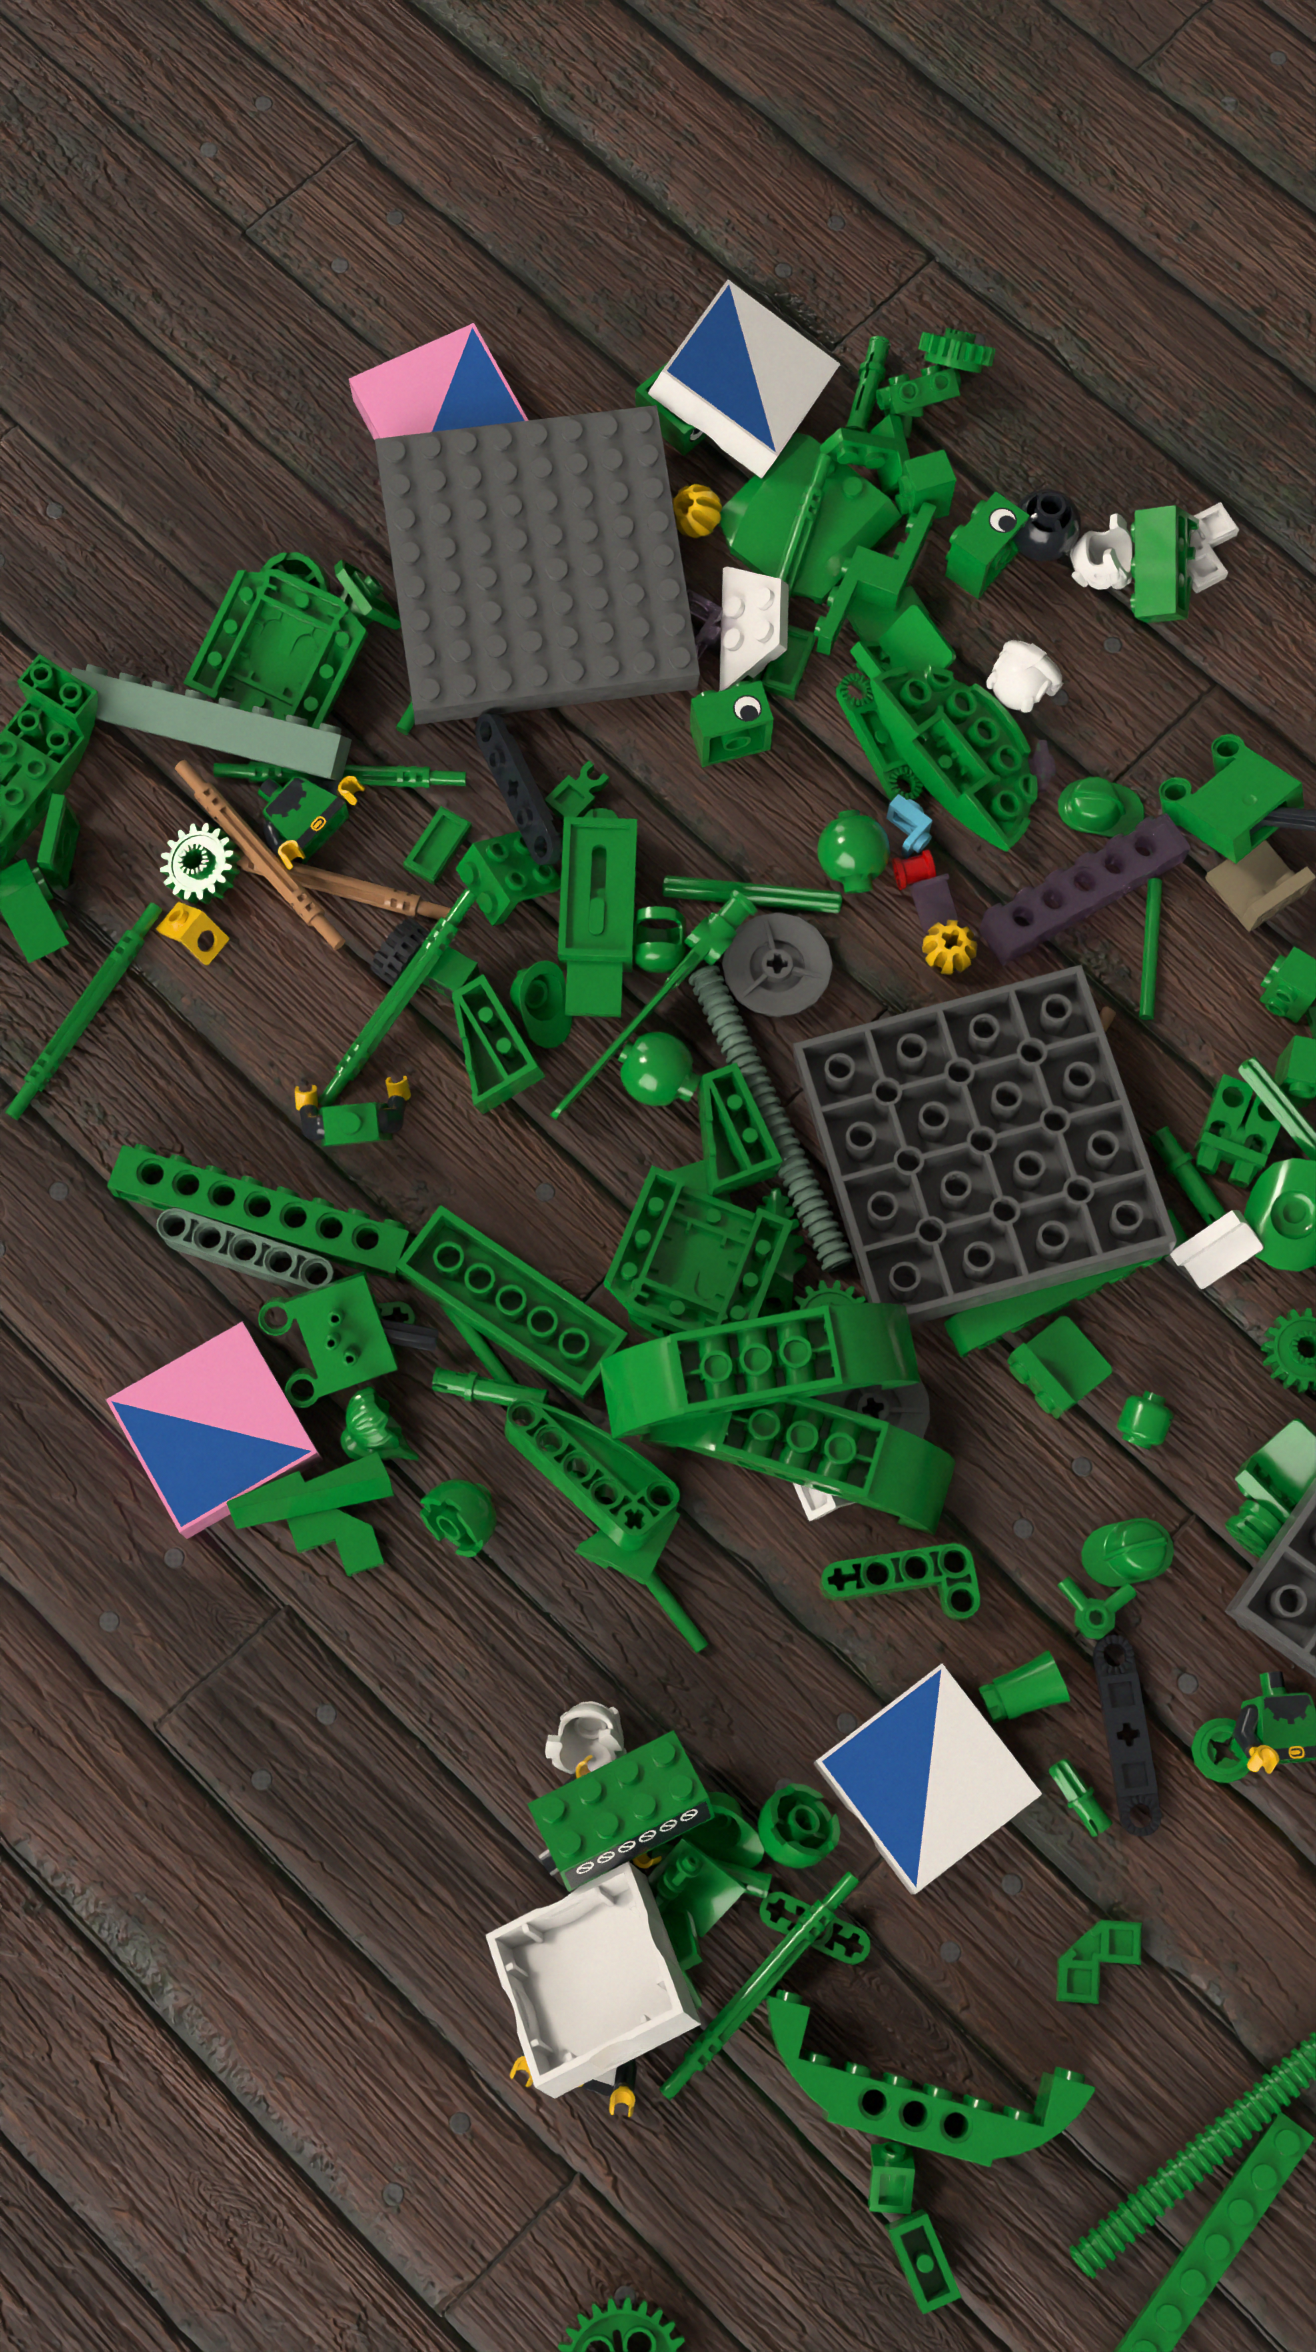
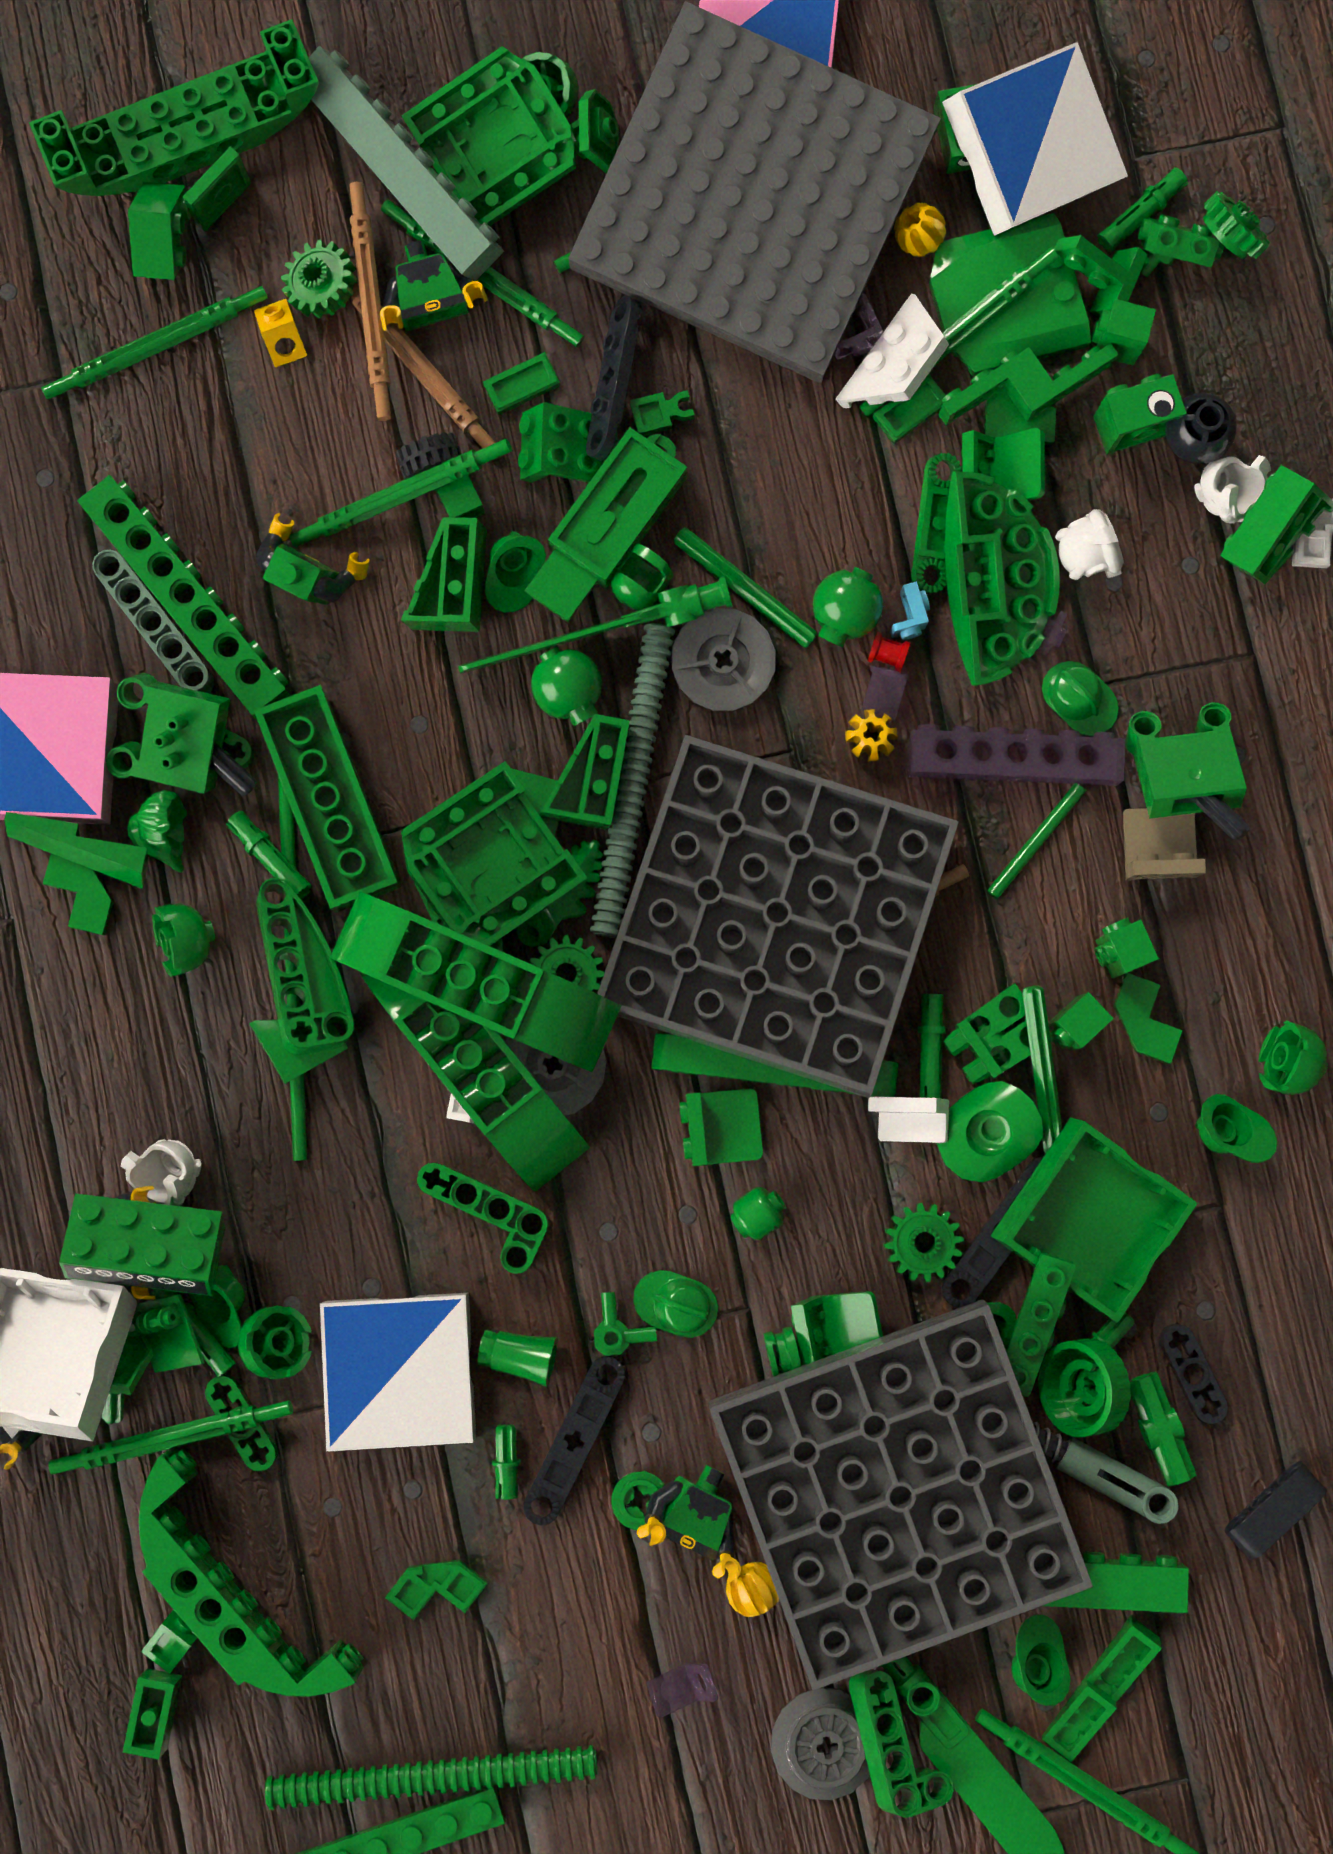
camera: 30 degrees right, 10 degrees up
(731, 723) = (821, 432): green brick -> none

